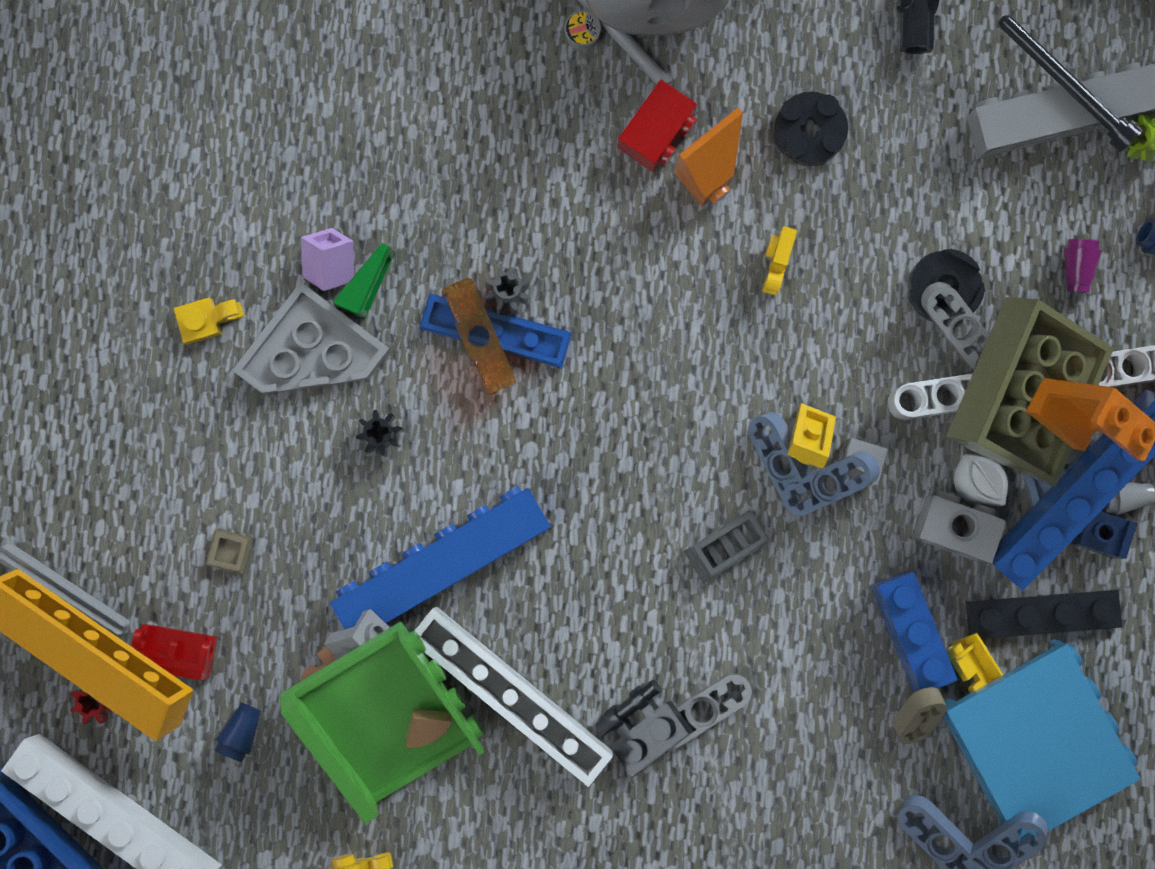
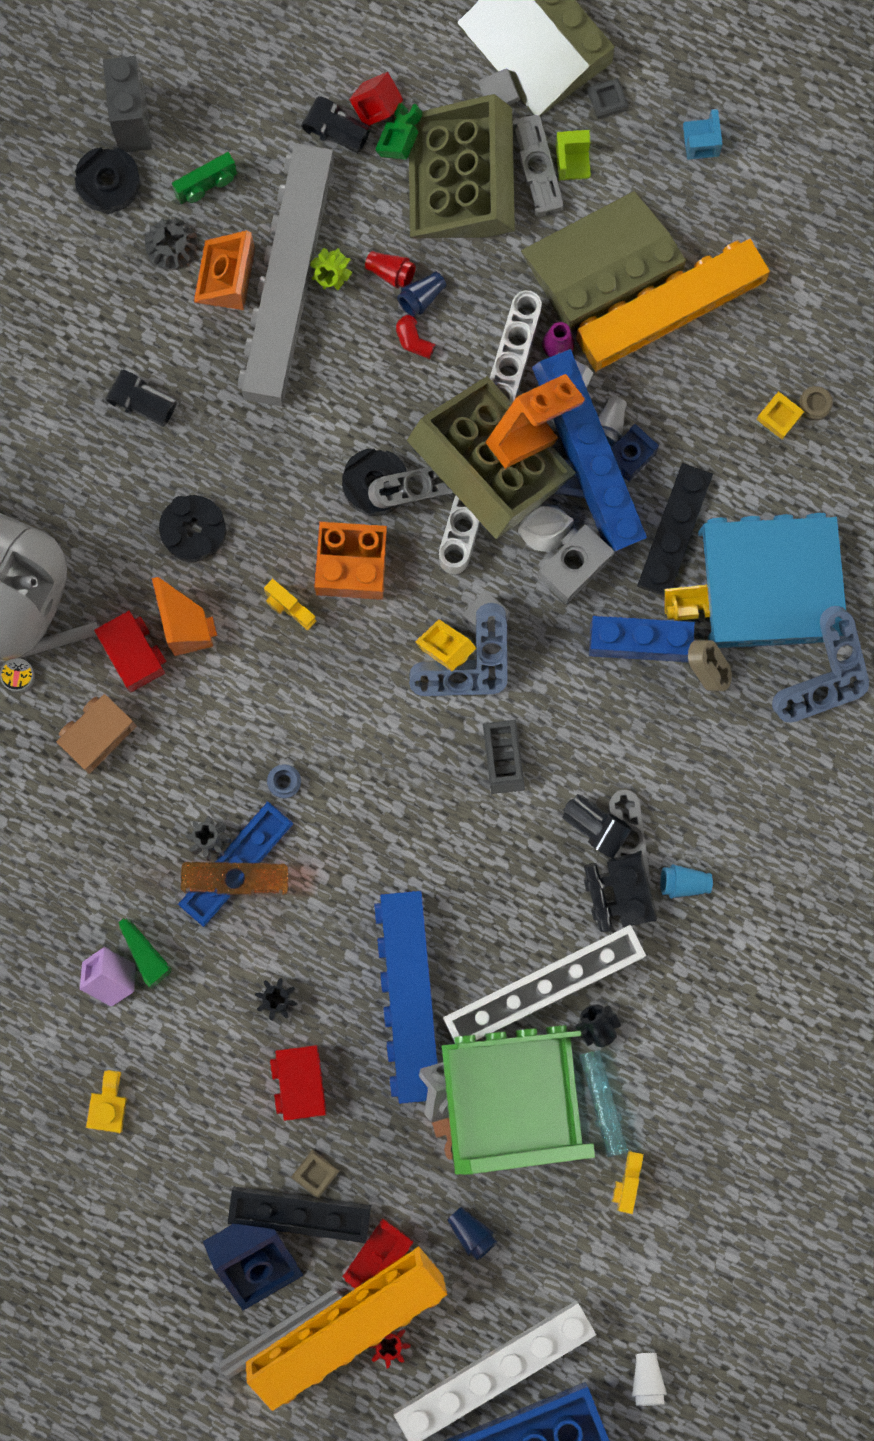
camera: 65 degrees left, 5 degrees down
(113, 527) = (251, 1262): none -> dark blue slope
(182, 554) = (299, 1214): none -> black plate
(307, 495) = (299, 1083): none -> red brick
(309, 348) = (175, 1026): light grey plate -> none
(415, 814) = (603, 1103): none -> clear light blue pin
(426, 727) = (538, 1068): medium nougat tile -> none
(499, 766) = (598, 1025): none -> black gear
(560, 131) = (95, 732): none -> medium nougat brick
(599, 327) = (284, 770): none -> sand blue plate
(684, 787) = (683, 882): none -> dark azure cone
(698, 683) = (603, 829): none -> black piece
(853, 299) = (350, 560): none -> orange slope
(1081, 264) = (408, 367): magenta cone -> none
(1092, 35) = (226, 270): none -> orange slope
(1112, 251) = (410, 338): none -> red arm
(1120, 131) = (316, 288): black piece -> none

